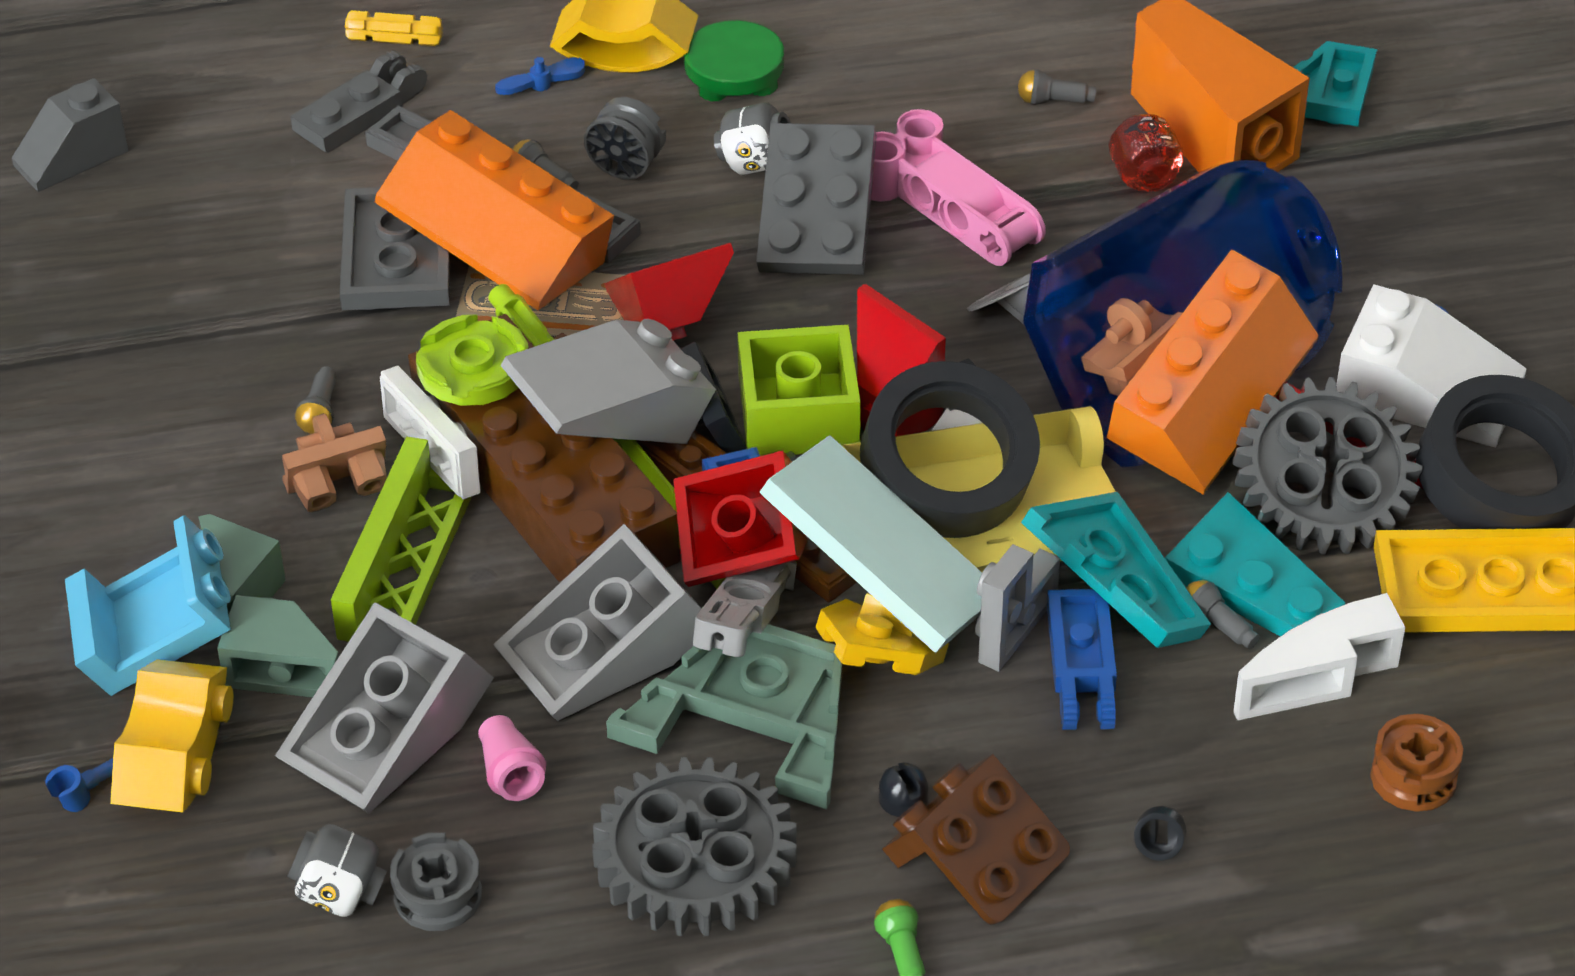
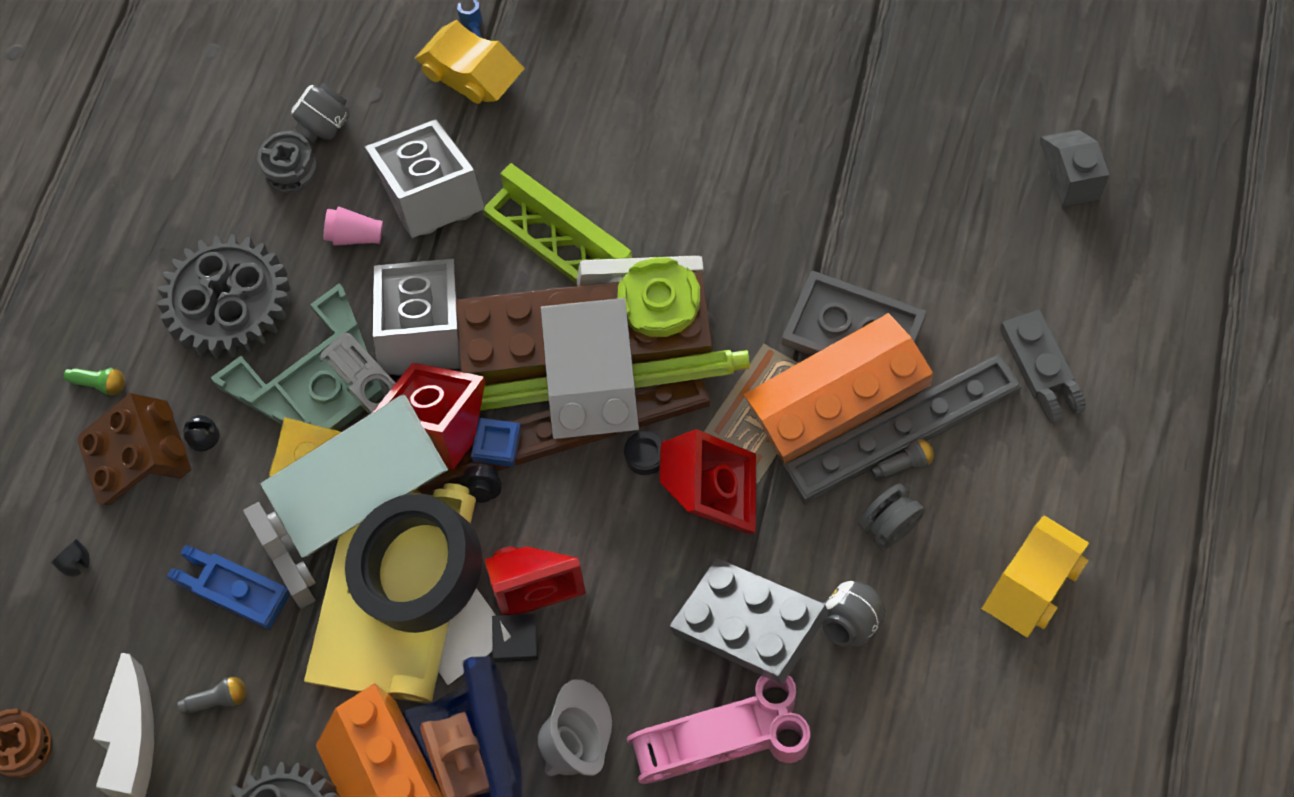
camera: 120 degrees right, 20 degrees up
(151, 612) = (565, 70): medium azure panel -> none
(250, 559) = (585, 135): sand green slope -> none
(274, 648) = (506, 137): sand green slope -> none
(317, 401) = (713, 228): piece -> none
(332, 456) = (656, 217): nougat hips -> none
(393, 28) = (1127, 419): yellow axle -> none
(542, 75) = (1019, 503): blue piece -> none
(718, 413) = (583, 460): black plate -> none
(734, 60) = (970, 651): green tile -> none
(798, 388) = (548, 507): lime brick -> none
(1121, 563) = (276, 638): teal wing -> none
(1251, 569) = (232, 742): teal wing -> none

